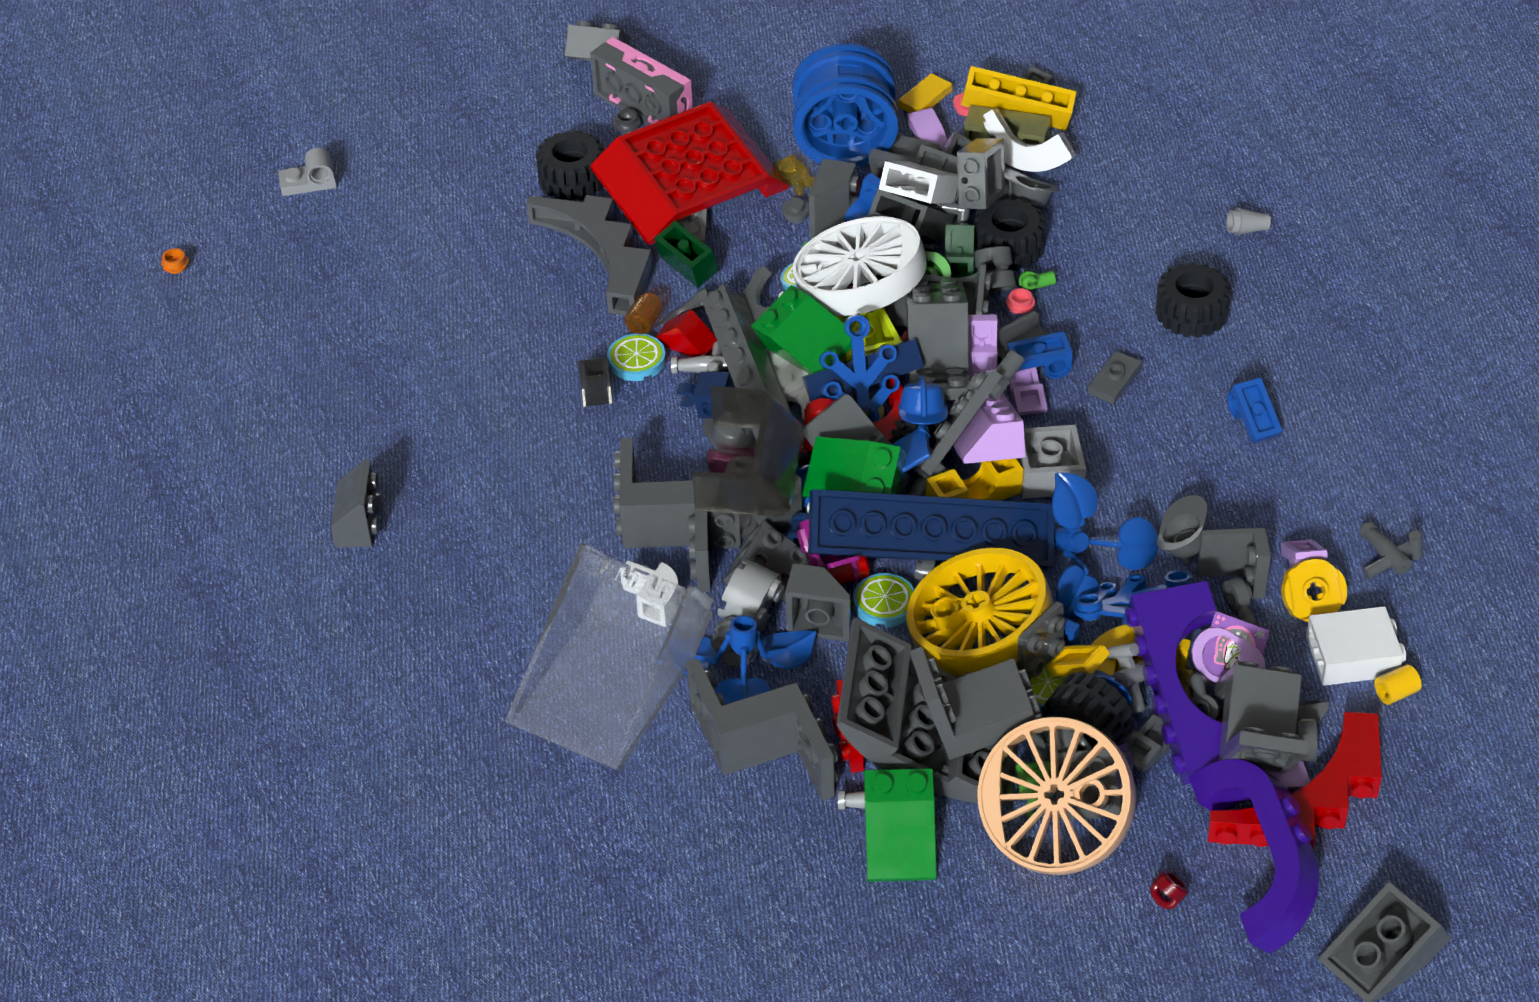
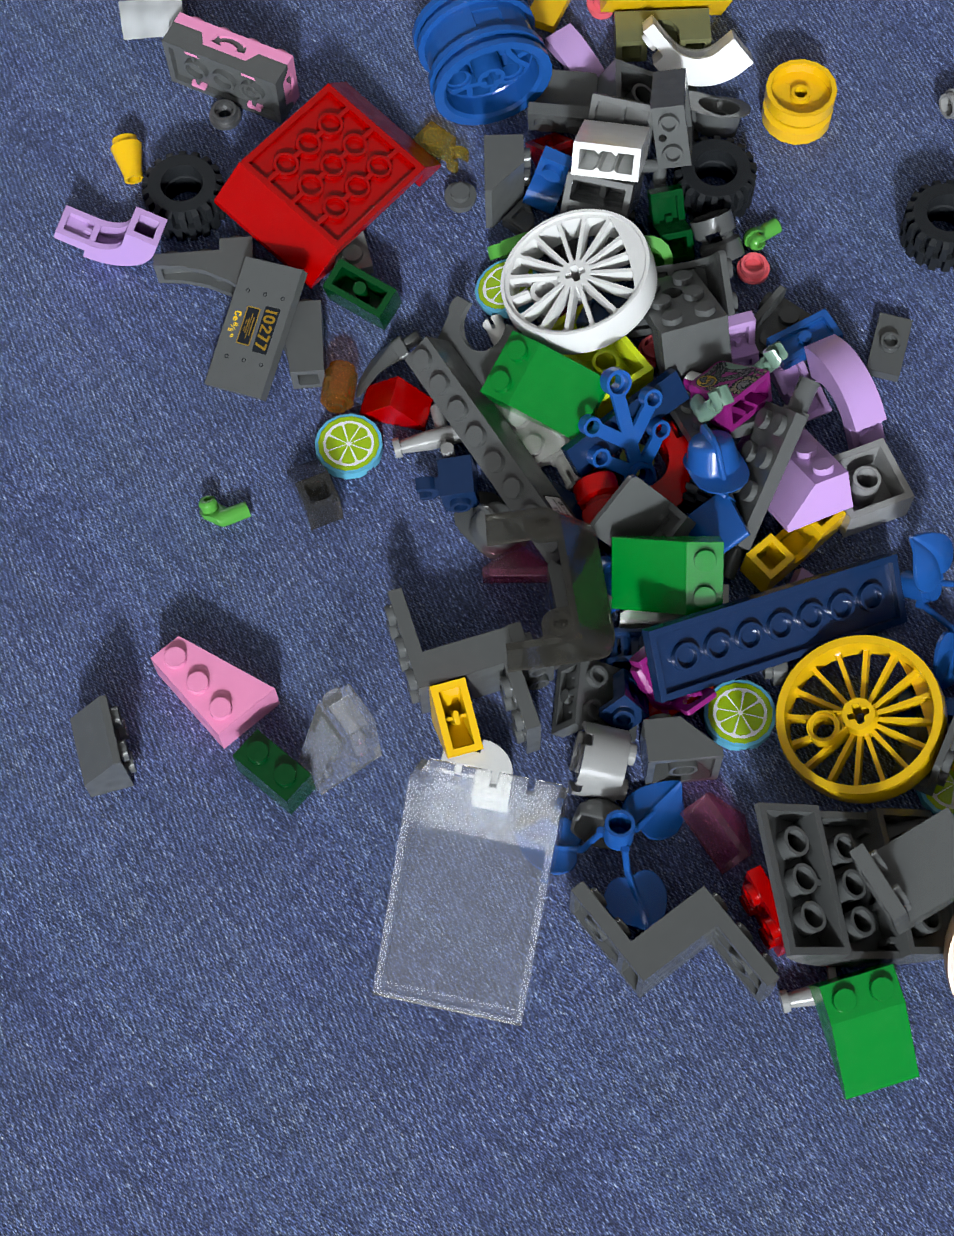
camera: 15 degrees left, 20 degrees up
(461, 491) = (214, 690): none -> bright pink wedge
(485, 553) = (274, 771): none -> dark green brick
(499, 185) = (112, 242): none -> lavender arch
(516, 382) = (222, 515): none -> bright green arm
(537, 129) = (128, 155): none -> yellow cone
(545, 534) = (339, 739): none -> clear wedge
(590, 258) = (256, 328): none -> dark grey tile
(642, 535) = (454, 718): none -> yellow slope
(783, 558) = (628, 703): none -> dark blue bracket
(828, 665) = (719, 830): none -> clear pink slope
(958, 361) = (731, 391): none -> torso
(1063, 389) = (851, 387): none -> lavender arch
(1102, 193) = (798, 101): none -> yellow wheel

